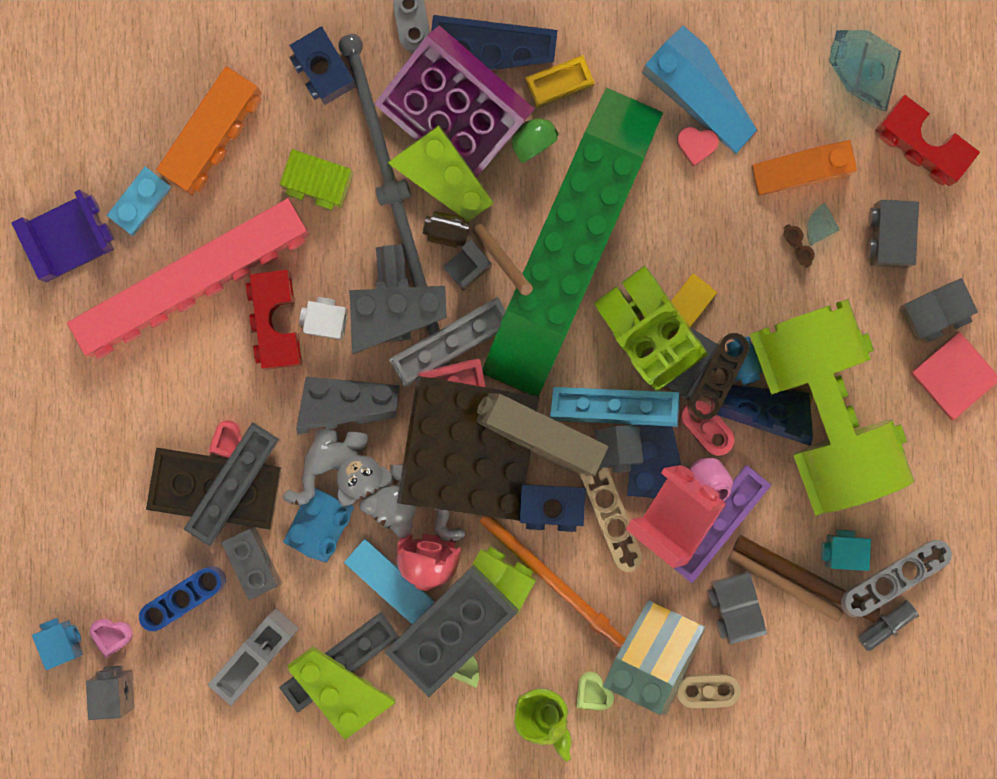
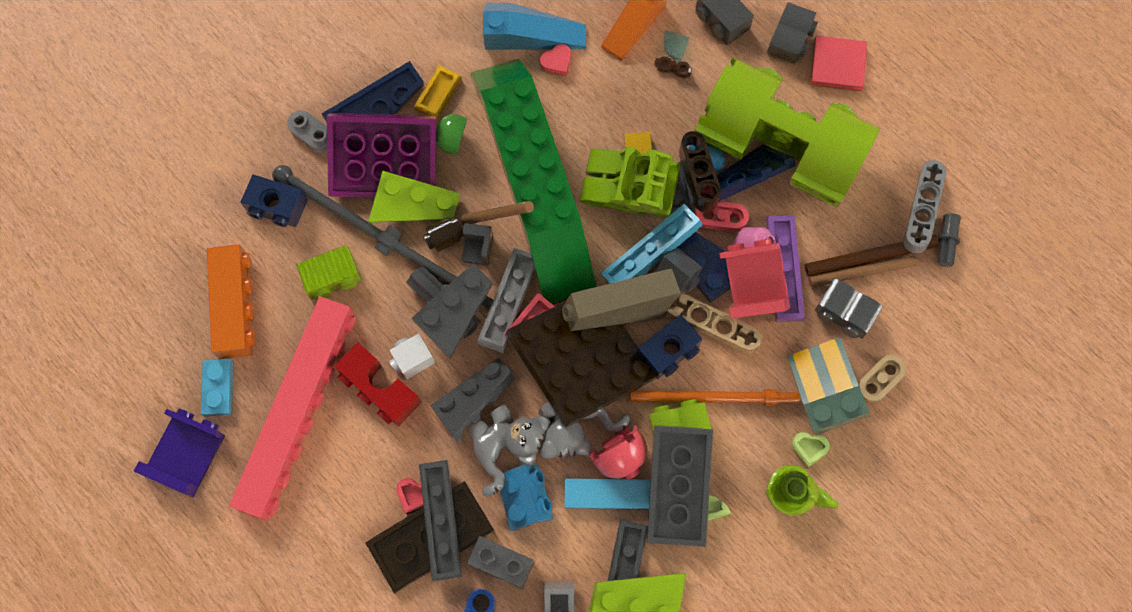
camera: 40 degrees left, 15 degrees down
(846, 551) = (879, 215): teal brick -> none

